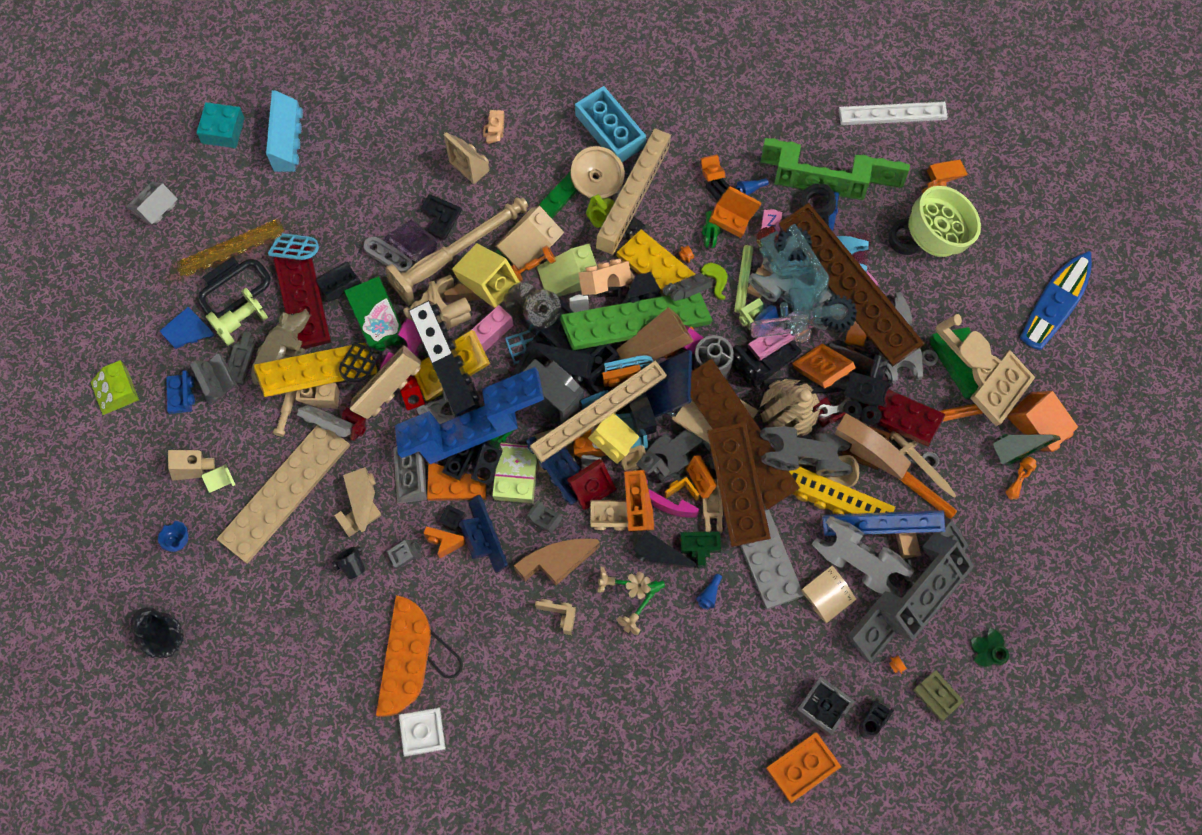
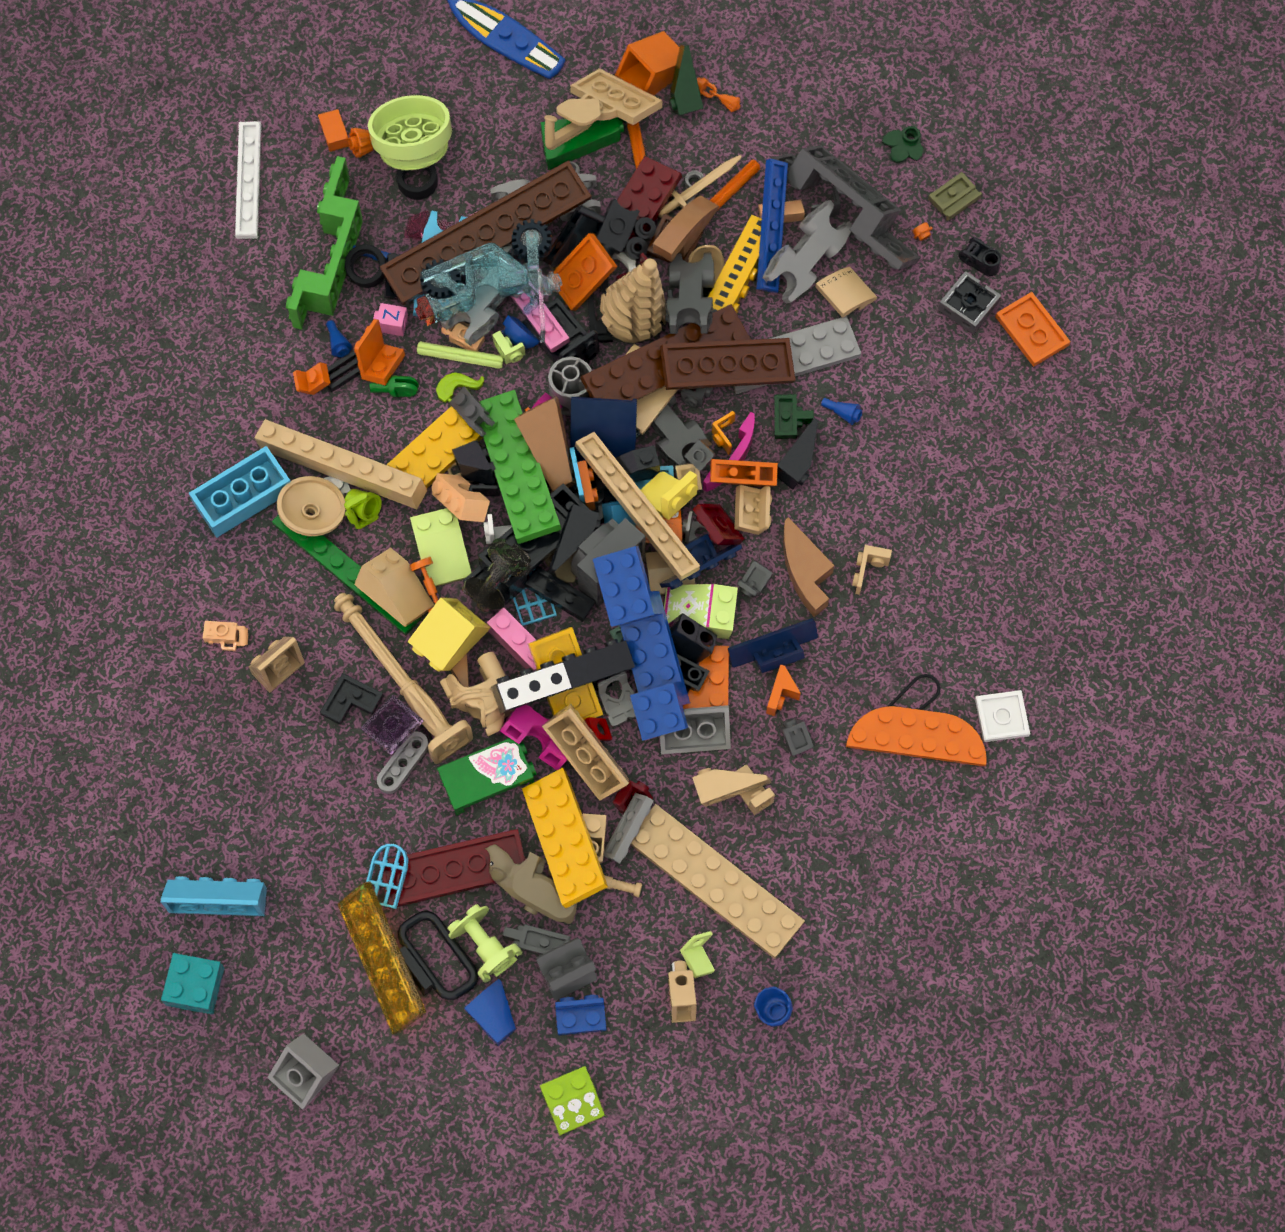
camera: 90 degrees left, 0 degrees up
(156, 632) = (894, 1016): black hair -> none
(337, 280) = (438, 820): black bracket -> none
(349, 562) = (807, 795): black piece -> none
(358, 356) = (553, 777): black window -> none
(451, 517) = (752, 683): black plate -> none
(638, 586) = (848, 469): tan plant -> none
(686, 253) = (423, 415): orange plate -> none
(701, 476) = (713, 407): orange plate -> none
(713, 509) = (741, 402): tan hinge -> none

